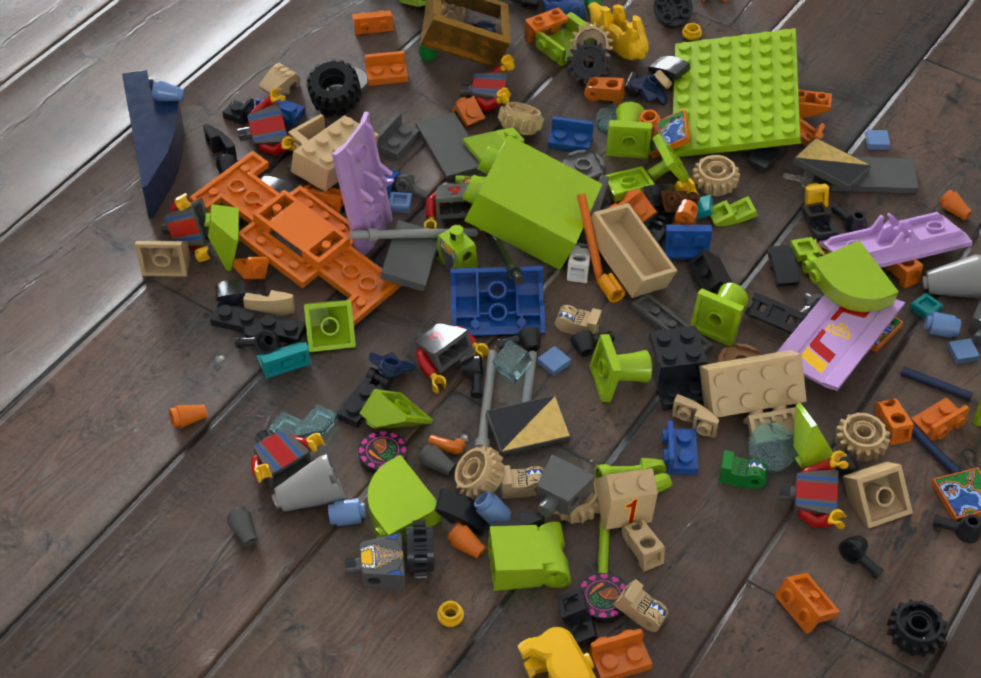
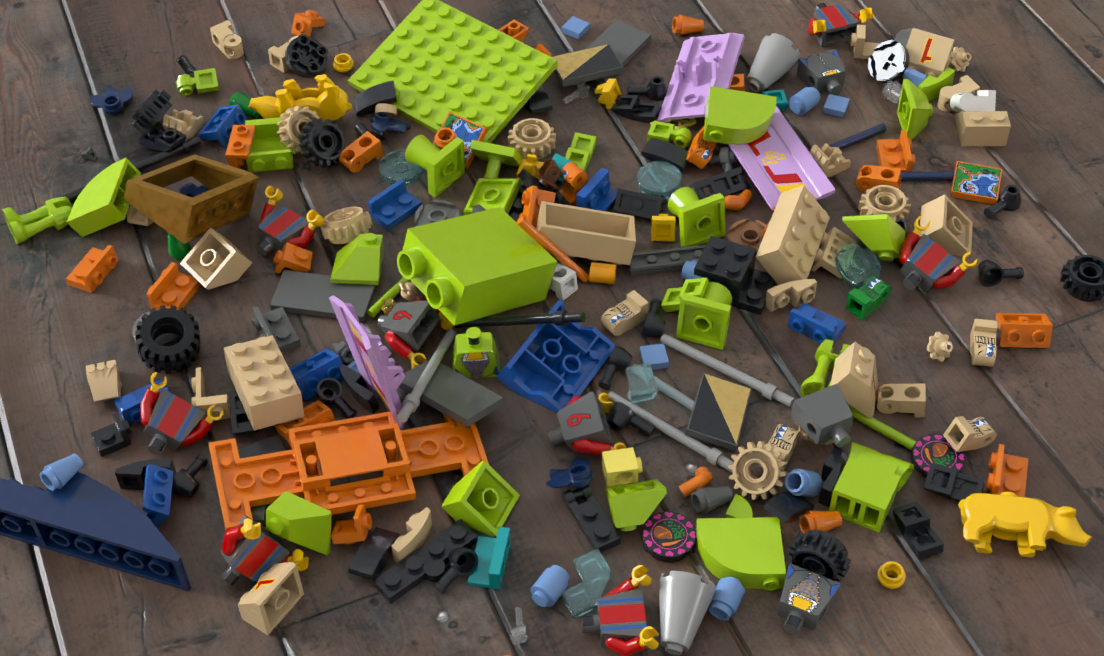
camera: 55 degrees left, 0 degrees up
(201, 153) = (157, 493): none -> blue bracket
(233, 406) = (518, 633): none -> clear hand
(281, 401) = (549, 586): none -> medium blue brick
(421, 389) = (621, 466): none -> light yellow brick
(428, 73) = (215, 261): none -> tan slope
(439, 482) = (739, 508): none -> lime tile
(512, 614) = (916, 529): none -> black slope
(579, 449) = (768, 390): none -> light grey bar
(628, 344) = (691, 286): none -> lime slope
(689, 298) = (663, 228): none -> yellow tile
(727, 545) = (939, 346): none -> tan plant
(752, 274) = (658, 179): none -> clear light blue tile
(760, 577) = (983, 342): none -> tan leg
(772, 335) = (737, 203): none -> orange arm
(800, 284) = (700, 150): none -> orange leg
(883, 374) = (830, 159): none -> tan hand

